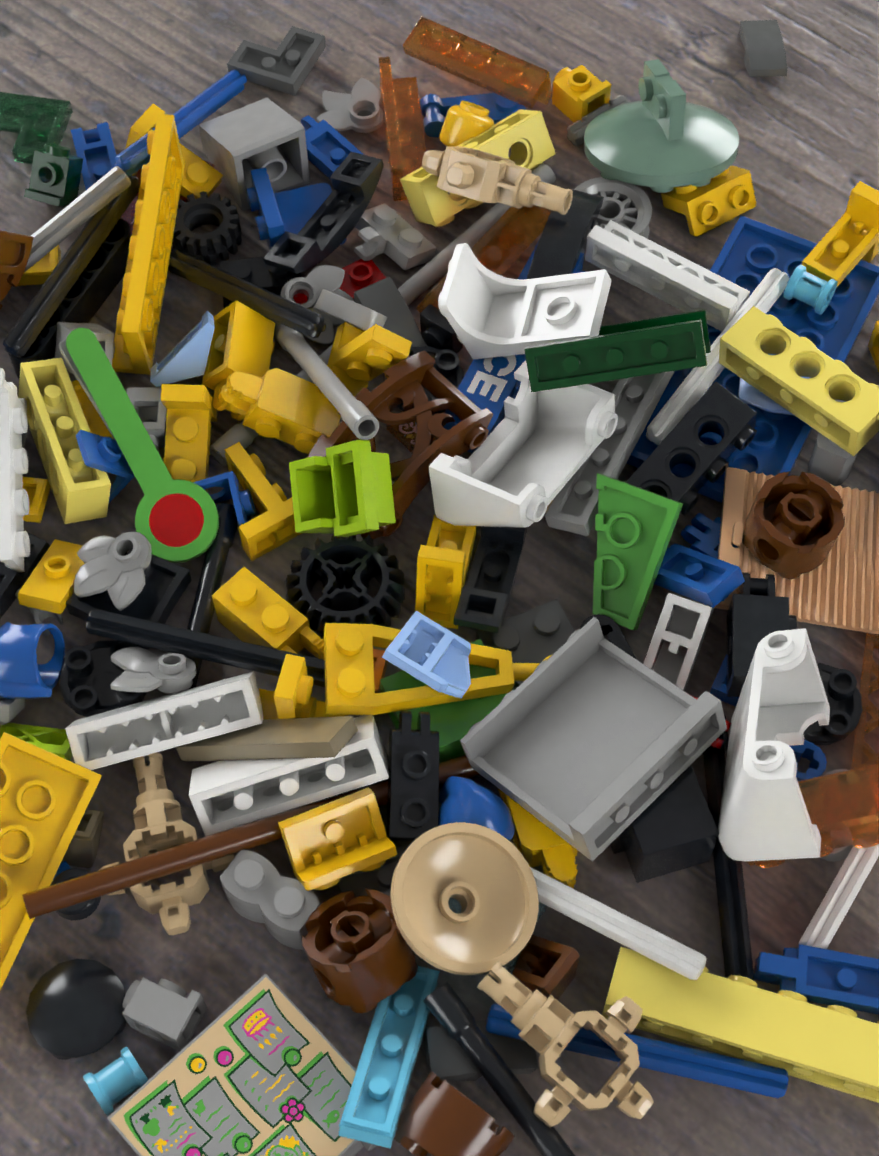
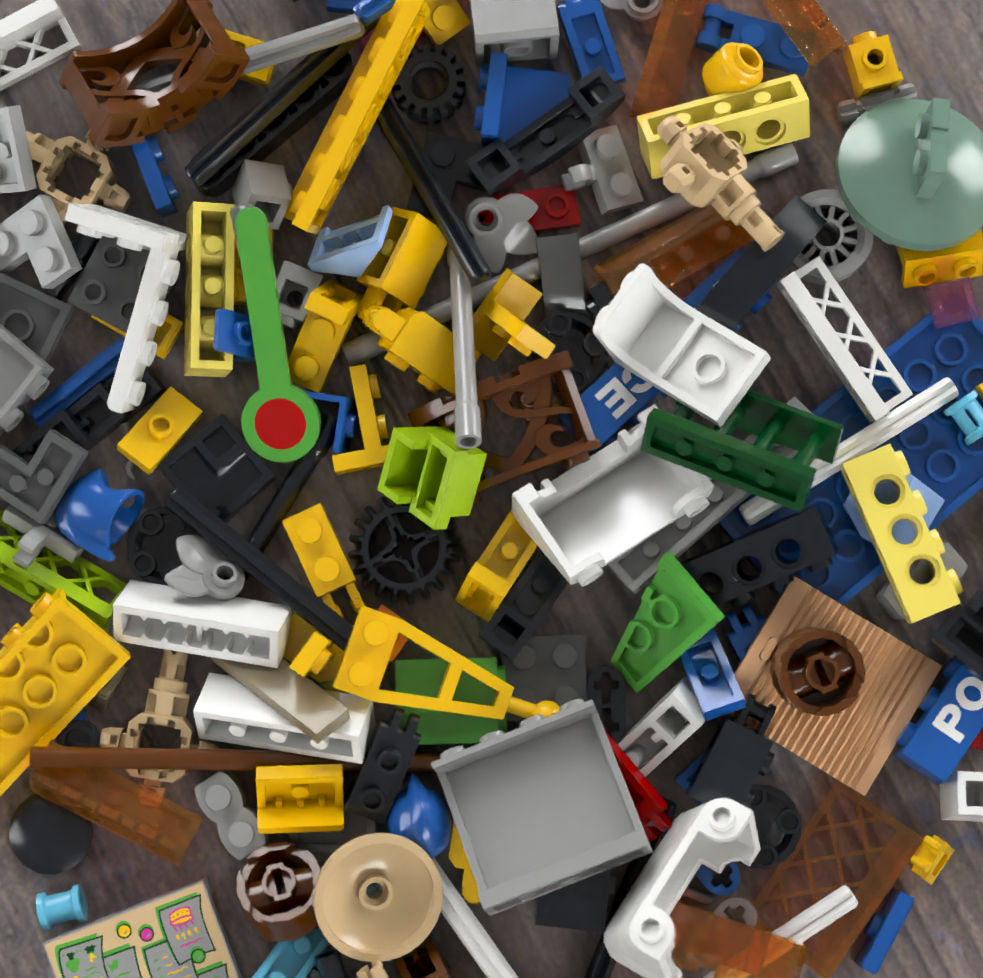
camera: 20 degrees right, 25 degrees up
(112, 571) = (202, 454): light grey plate -> none
(136, 930) = (120, 808): none -> clear orange fence
(163, 1011) = (114, 867): light grey brick -> none
(348, 311) = (521, 265): light grey beam -> none
(432, 655) = (436, 679): light blue slope -> none
(743, 216) = (952, 302): none -> clear pink plate

